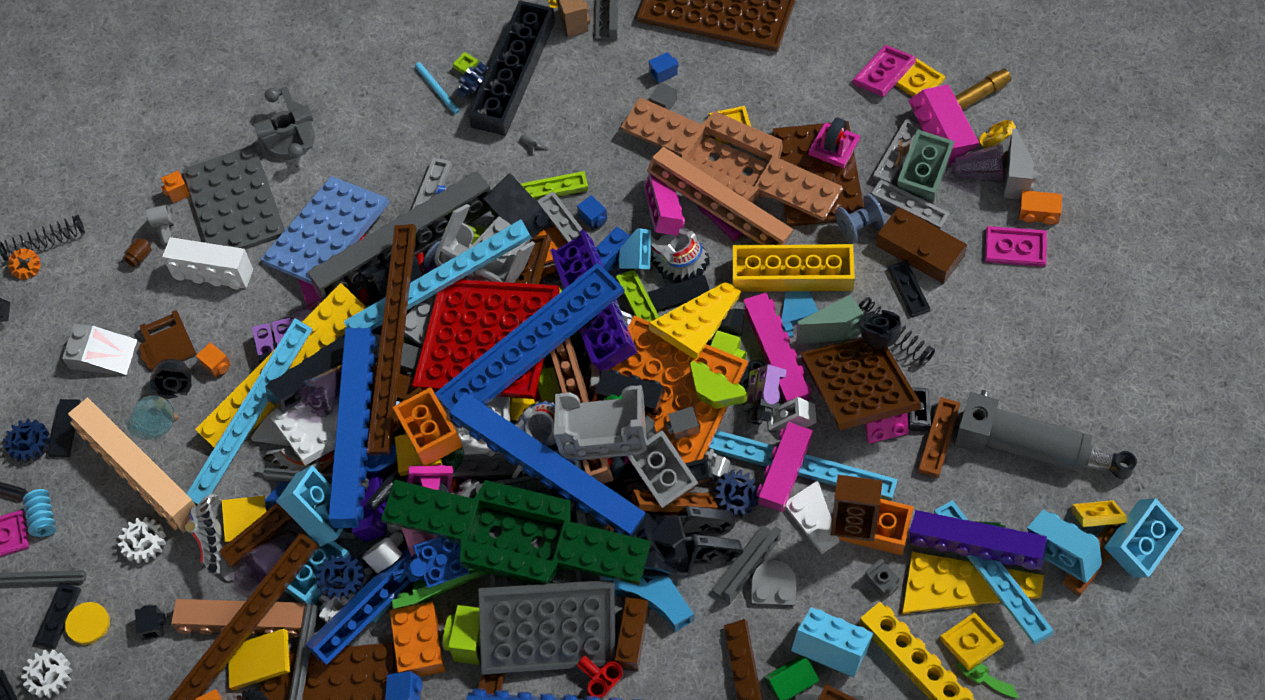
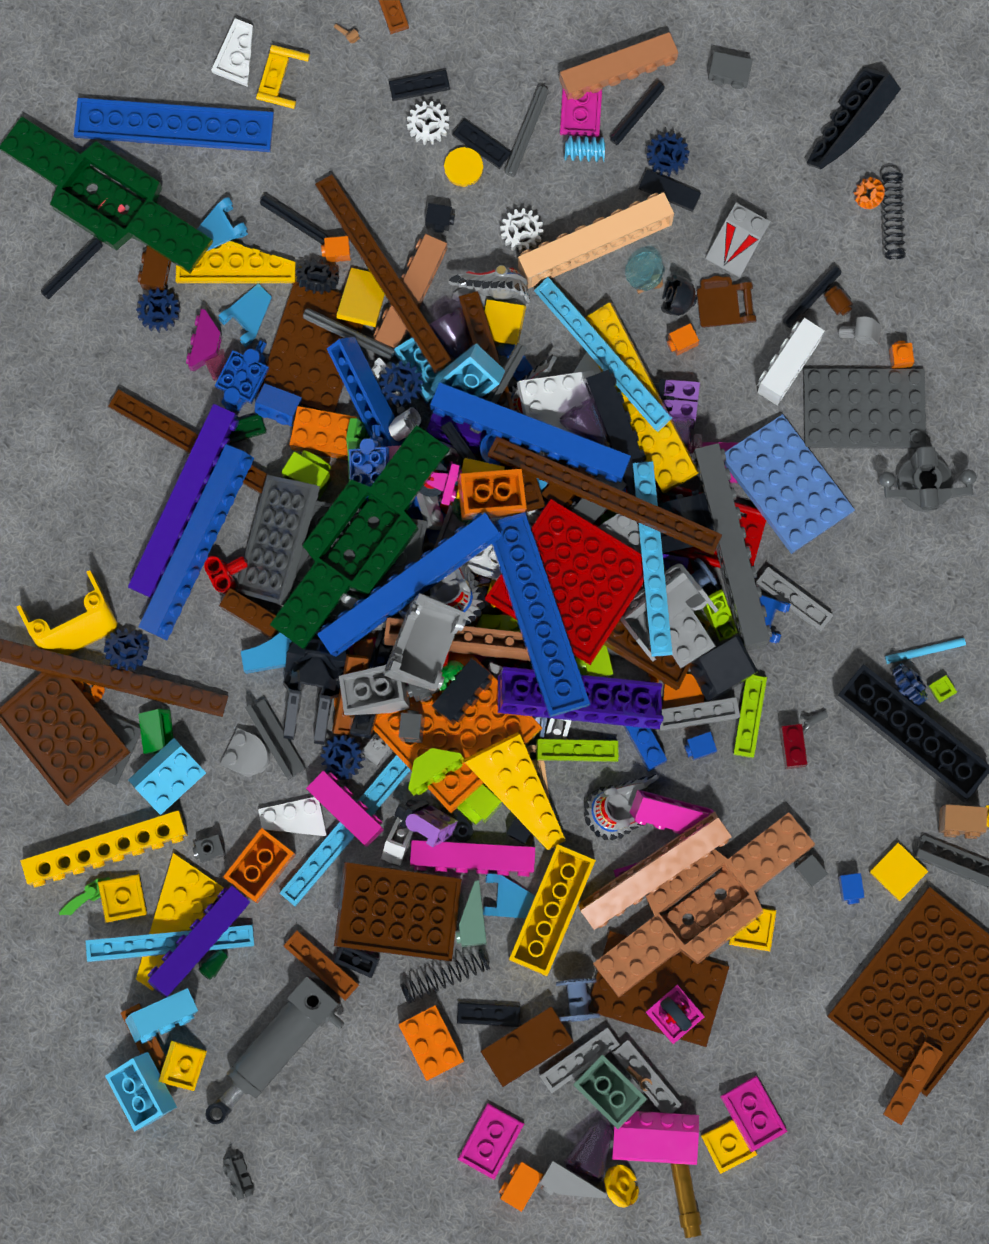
camera: 110 degrees right, 20 degrees up
(139, 276) = (812, 296): none -> black axle
(562, 145) = (793, 746): none -> dark red brick
(634, 44) = (898, 871): none -> yellow tile
(636, 251) = (628, 767): medium azure slope -> none
(678, 292) = (575, 793): black tile -> none
(856, 507) = (255, 837): reddish brown brick -> none
(880, 329) = (441, 955): black cylinder -> none
(959, 318) = (431, 1043): none -> orange brick
(1174, 424) = (239, 1185): none -> dark grey hinge

